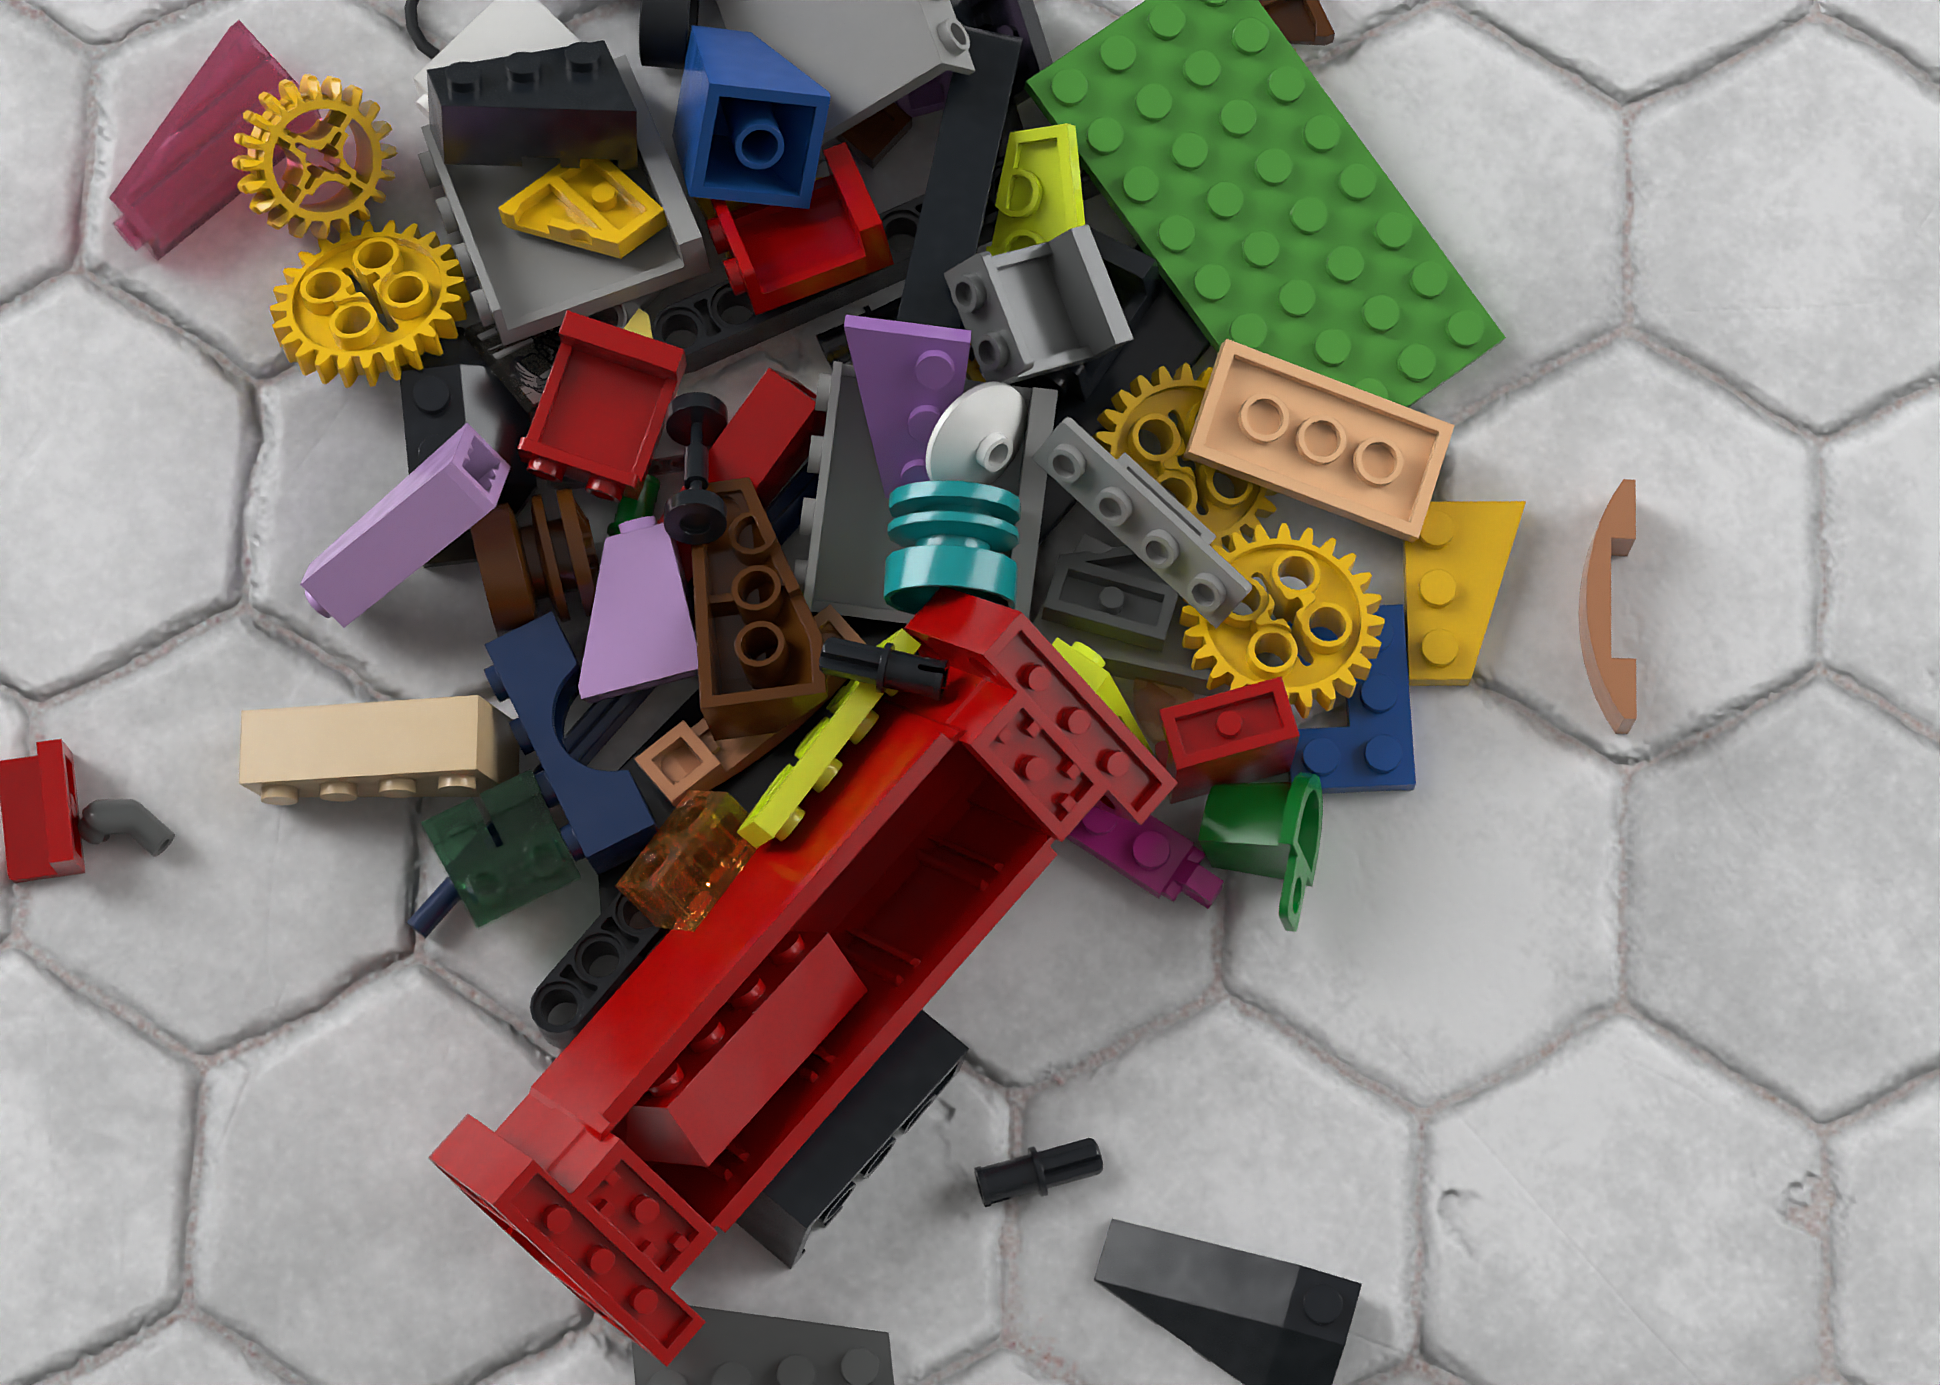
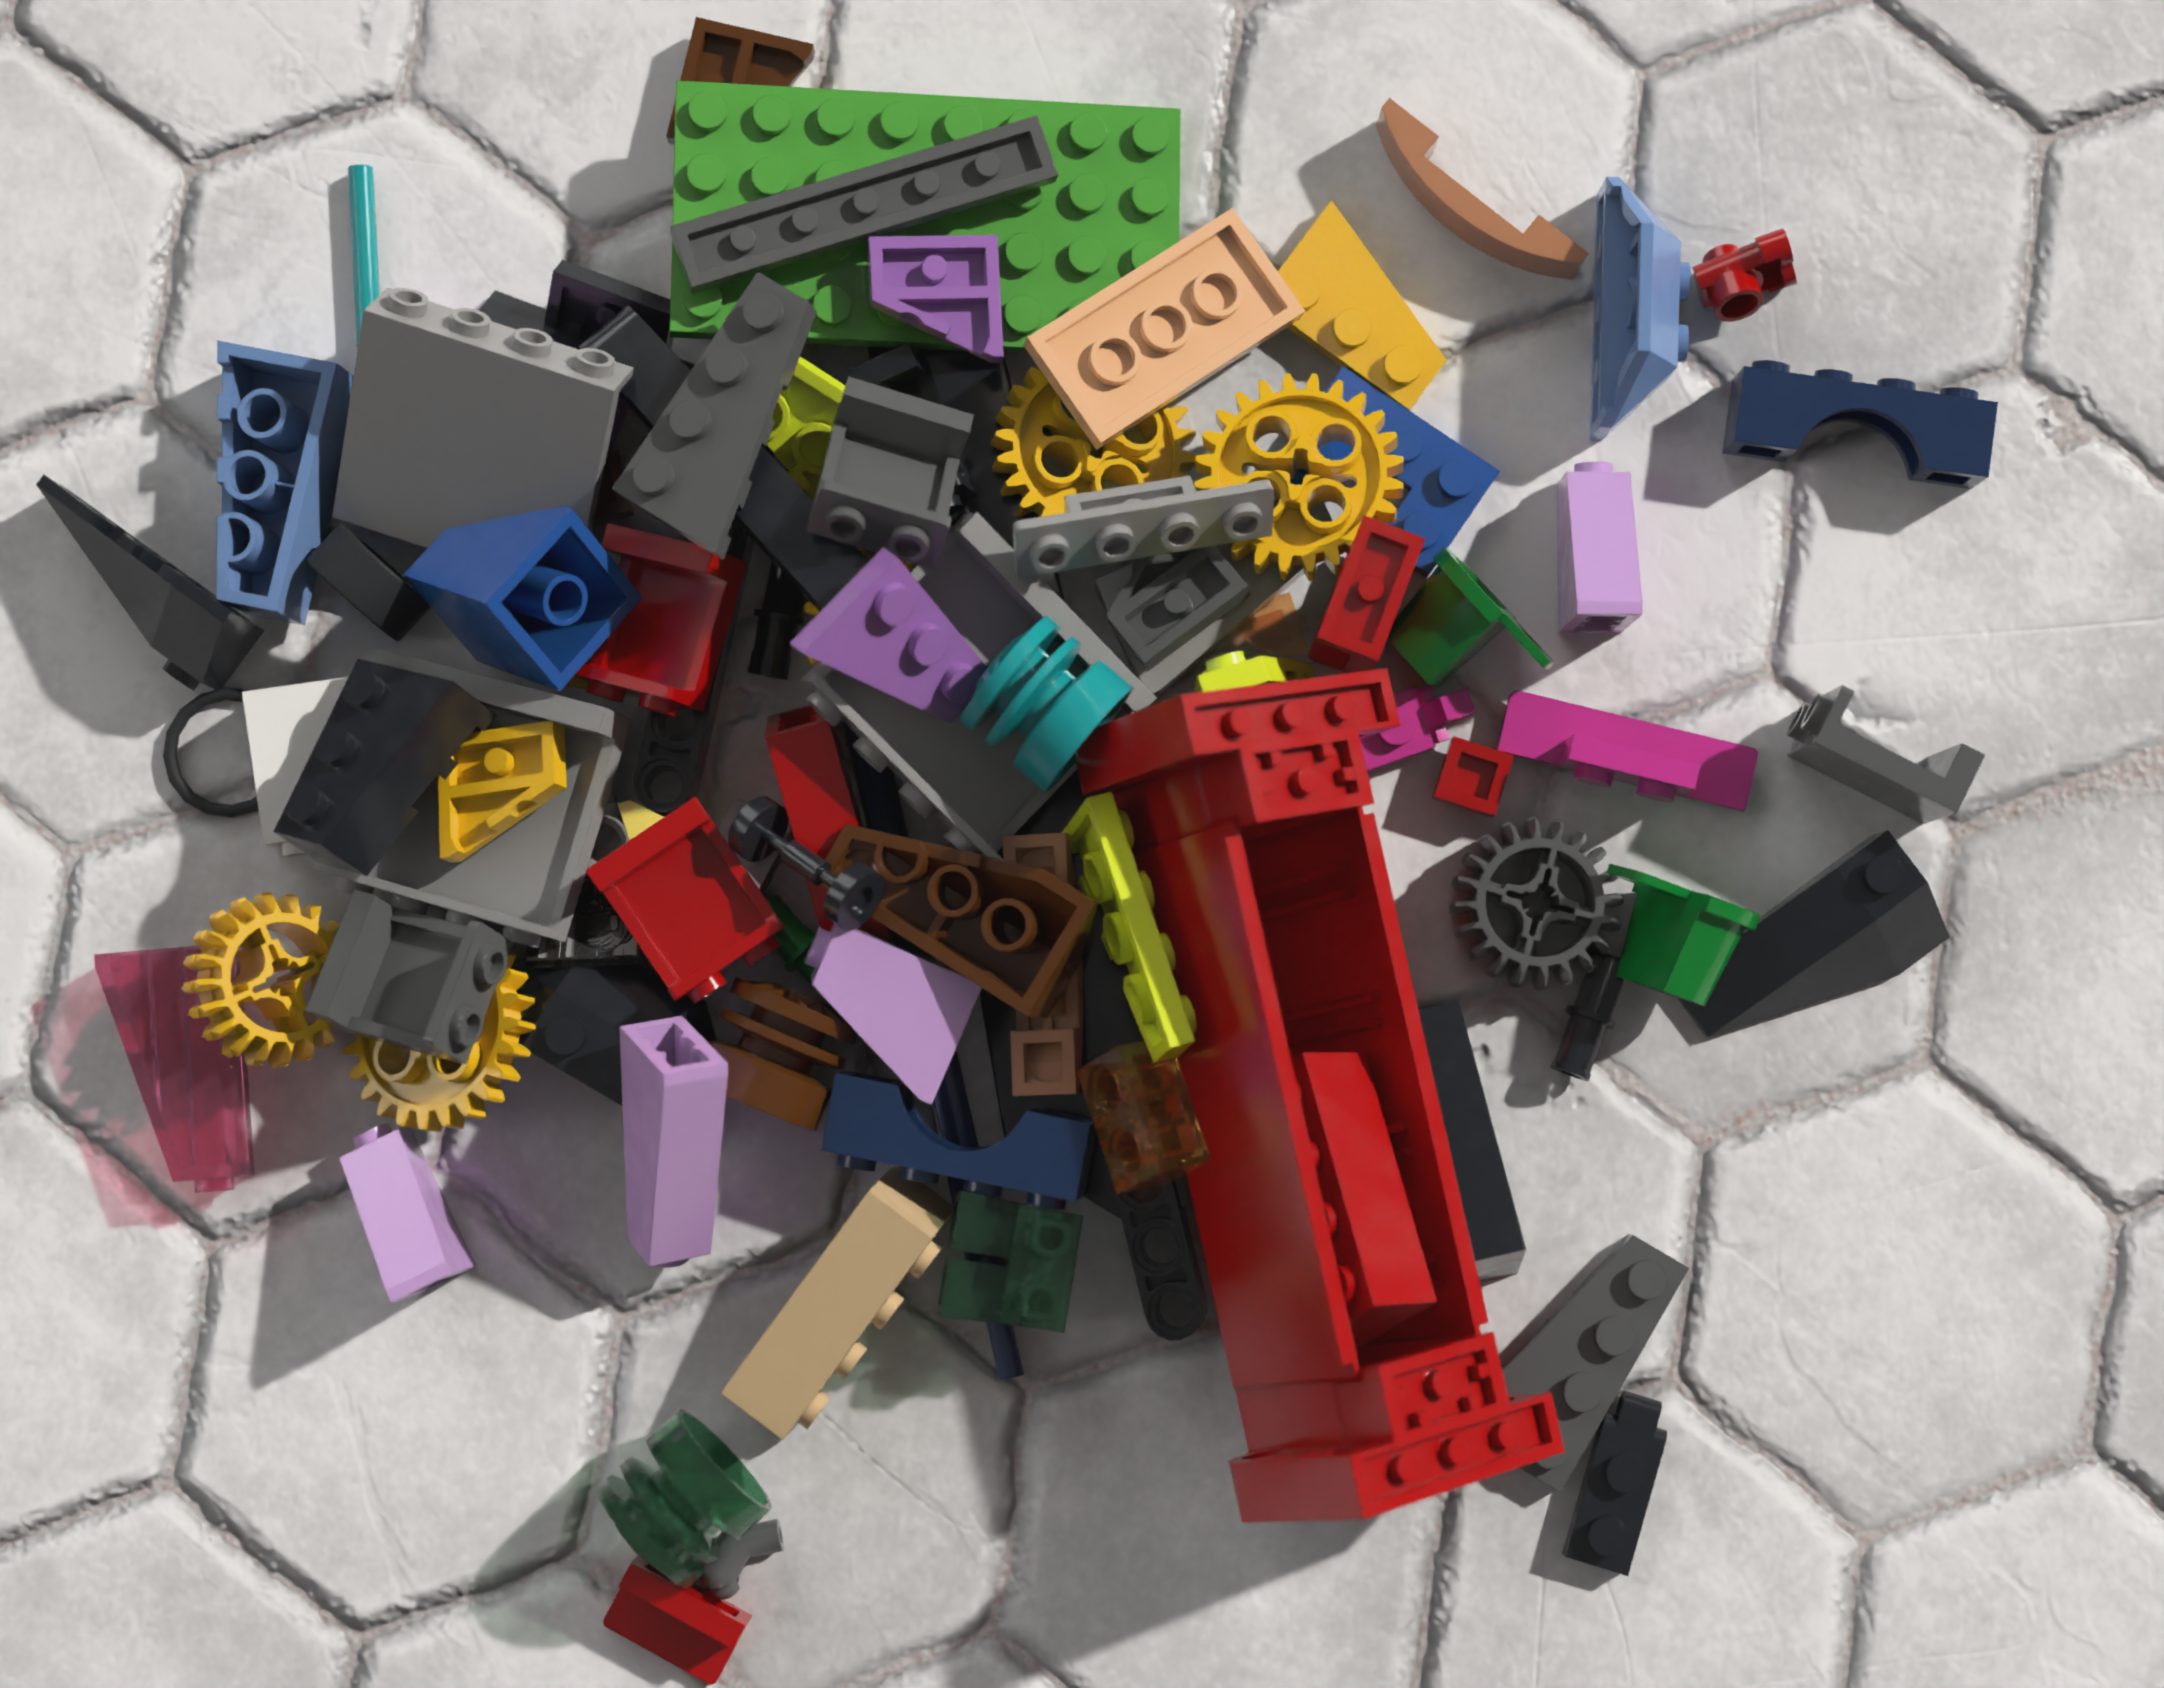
camera: 50 degrees left, 10 degrees up
(127, 740) = (670, 1510): none -> clear green wheel
(207, 384) = (404, 1213): none -> lavender slope
(389, 248) = (409, 978): none -> dark grey panel
(884, 667) = (1116, 839): black axle -> none
(964, 156) = (706, 441): none -> dark grey wing
(978, 435) = (966, 610): white dish -> none
(1067, 1073) = (1527, 933): none -> dark grey gear
(1151, 1187) = (1678, 937): none -> green container
(1157, 939) = (1472, 777): none -> red plate
(1216, 251) = (941, 288): none -> medium lavender wing
(1234, 148) = (863, 204): none -> dark grey plate
(1273, 1047) = (1627, 750): none -> dark pink bracket
(1408, 899) = (1597, 551): none -> lavender slope
(1413, 1295) = (1913, 790): none -> dark grey panel
(1623, 794) = (1633, 306): none -> medium blue wedge
(1636, 966) = (1938, 435): none -> dark blue arch
(1716, 852) = (1734, 277): none -> red plate

